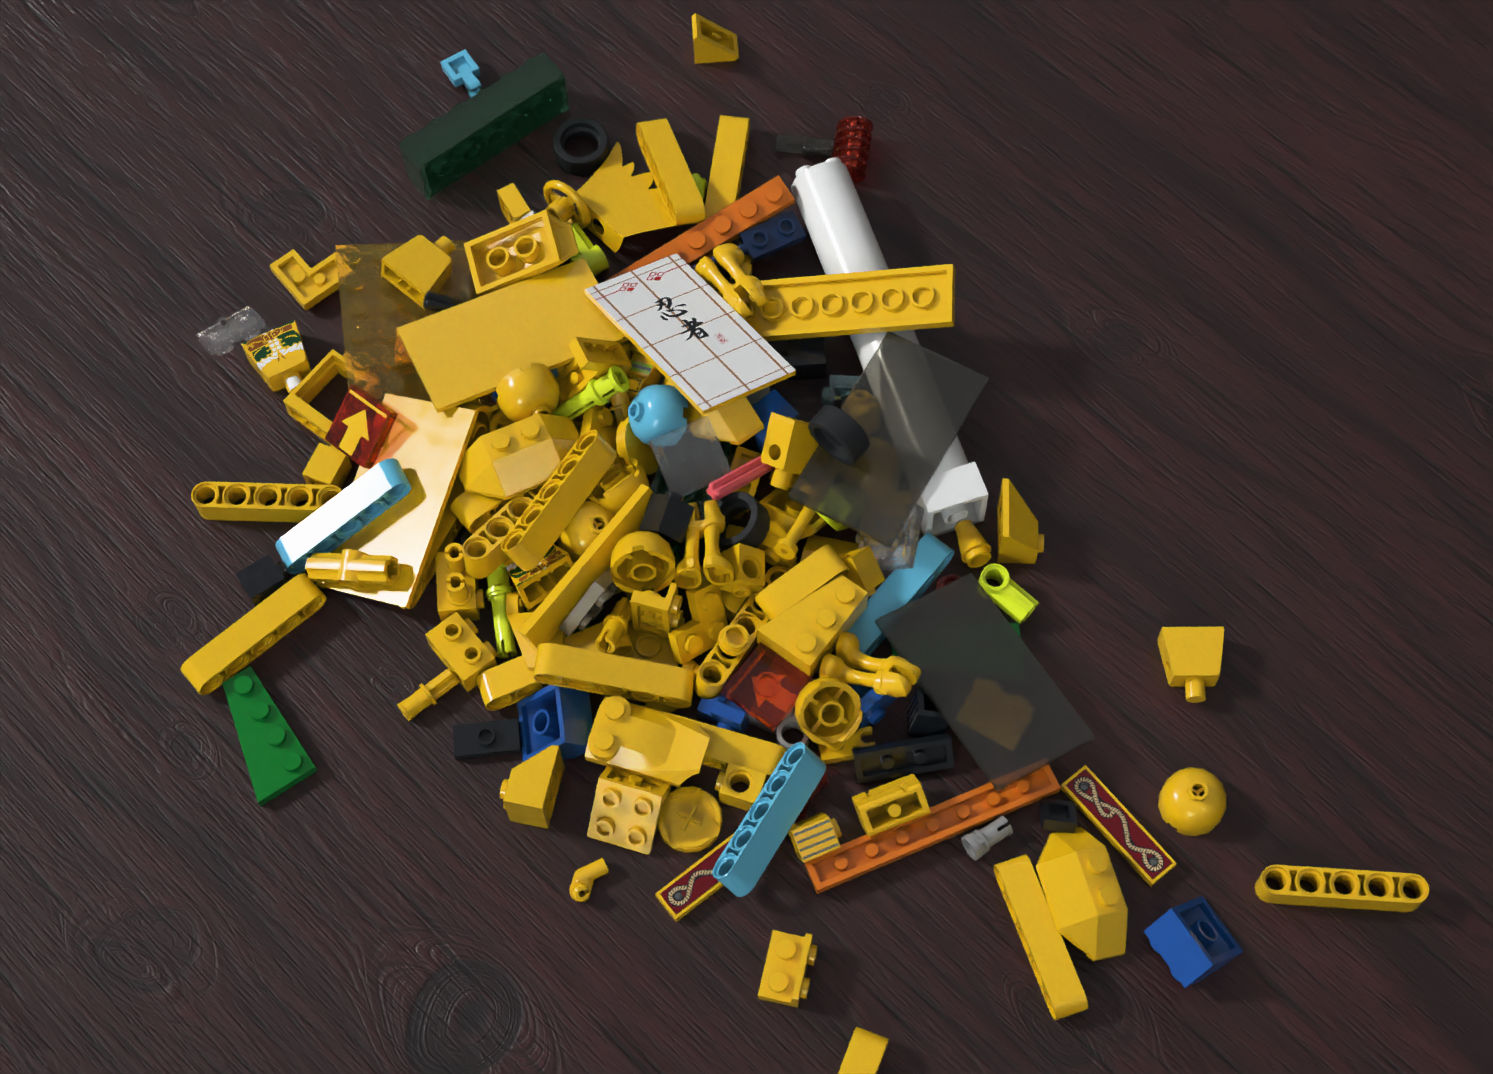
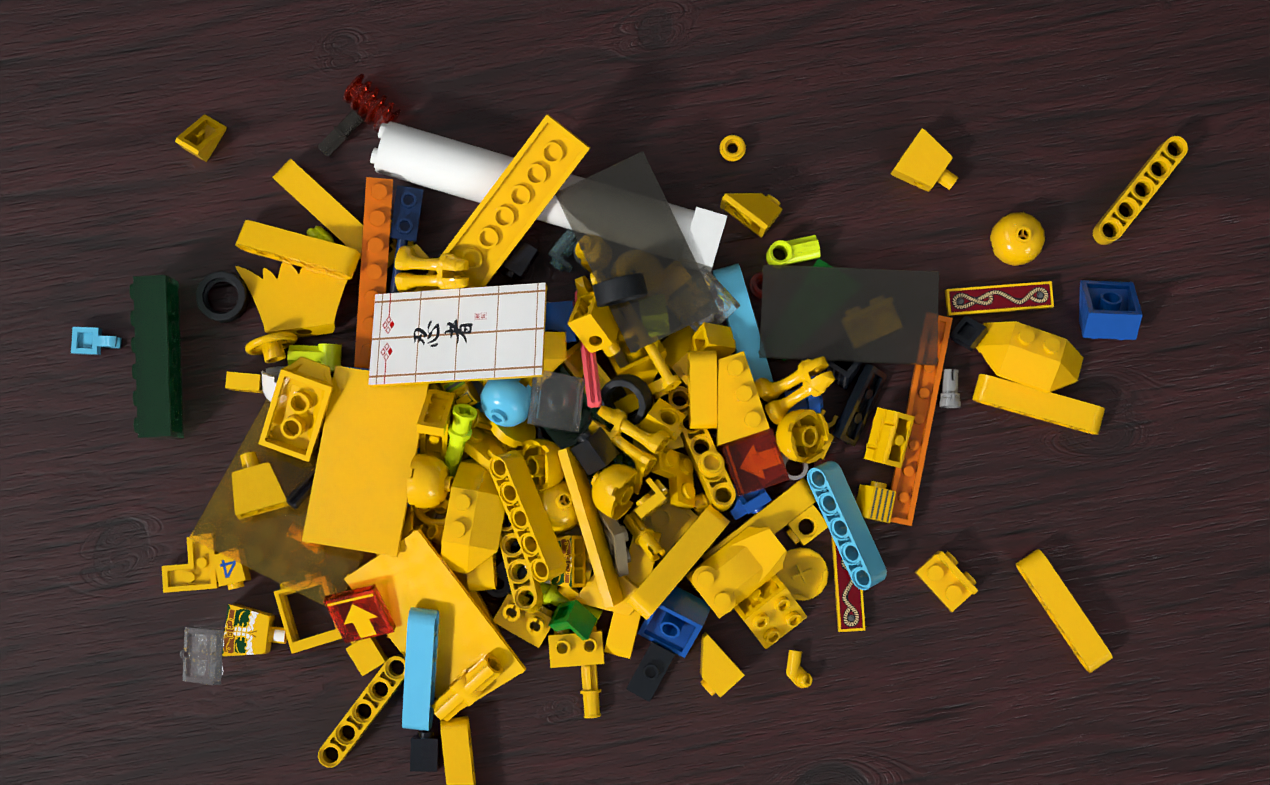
camera: 55 degrees left, 20 degrees up
(325, 307) = (230, 572): none -> yellow brick
(490, 623) = (575, 617): none -> green panel
(972, 545) = (740, 247): yellow cone -> none
(1062, 468) = (732, 140): none -> yellow plate

